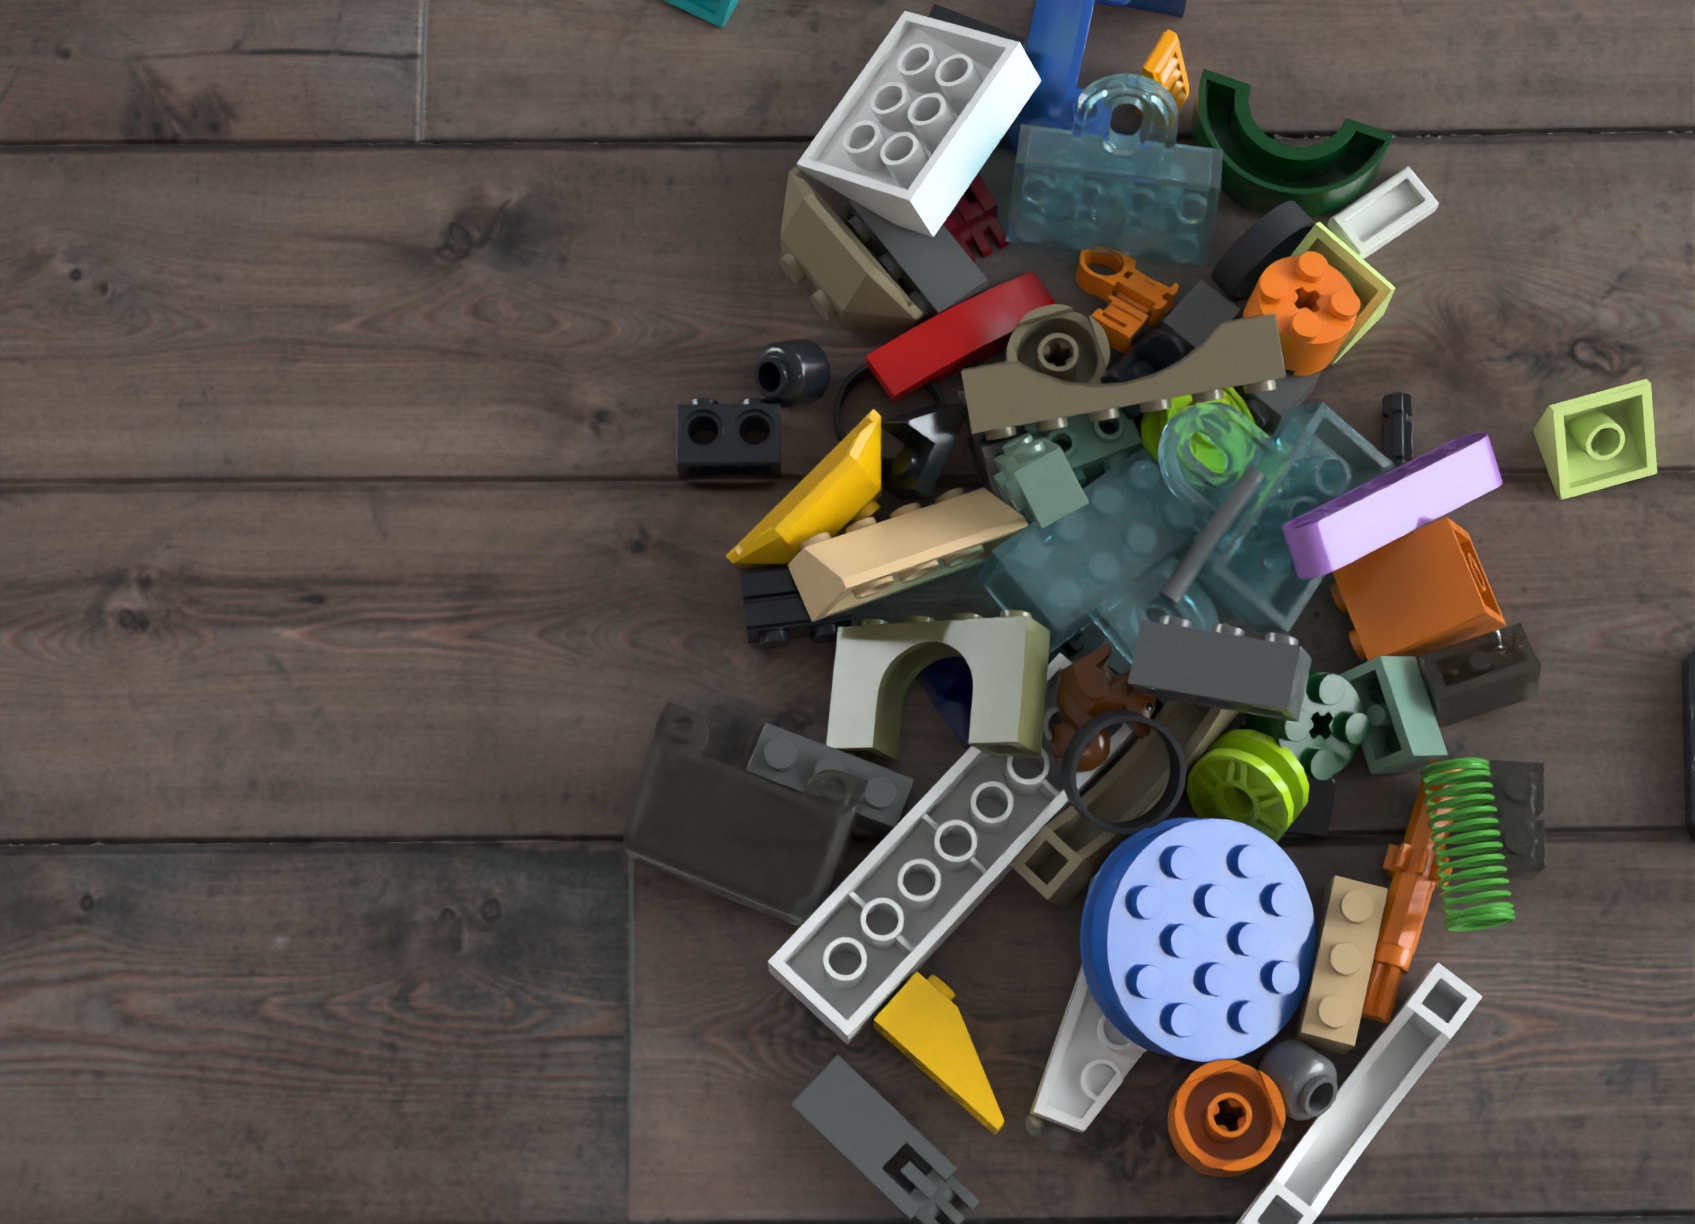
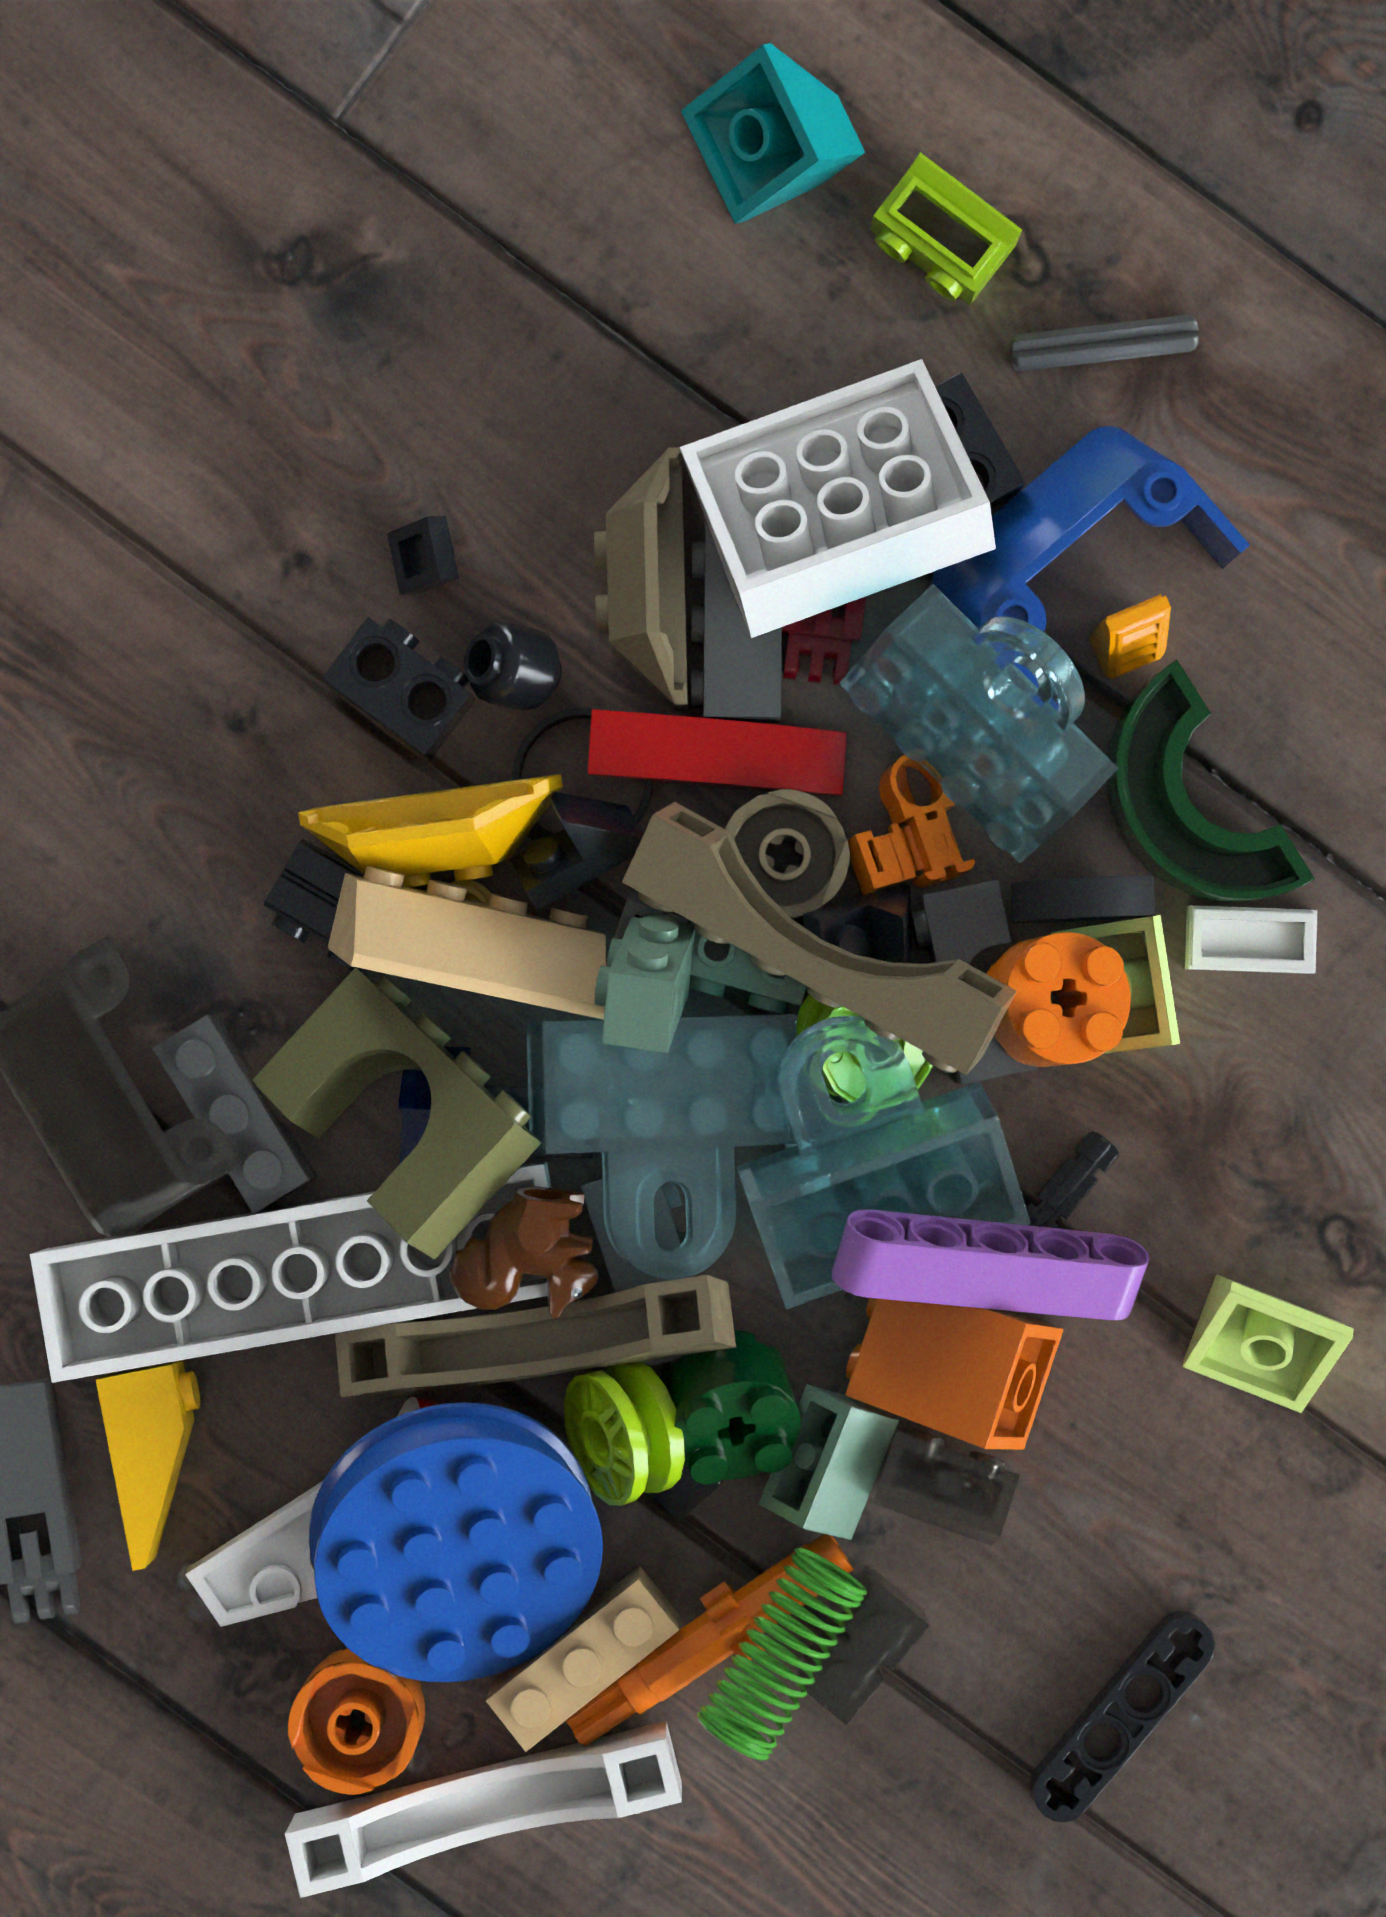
camera: 40 degrees right, 15 degrees up
(680, 350) = (423, 555): none -> black plate
(1174, 786) = (486, 1394): black tyre -> none
(1212, 535) = (781, 1164): dark grey bar -> none
(1220, 668) = (656, 1325): dark grey brick -> none
(1302, 1077) = (455, 1734): dark grey head -> none

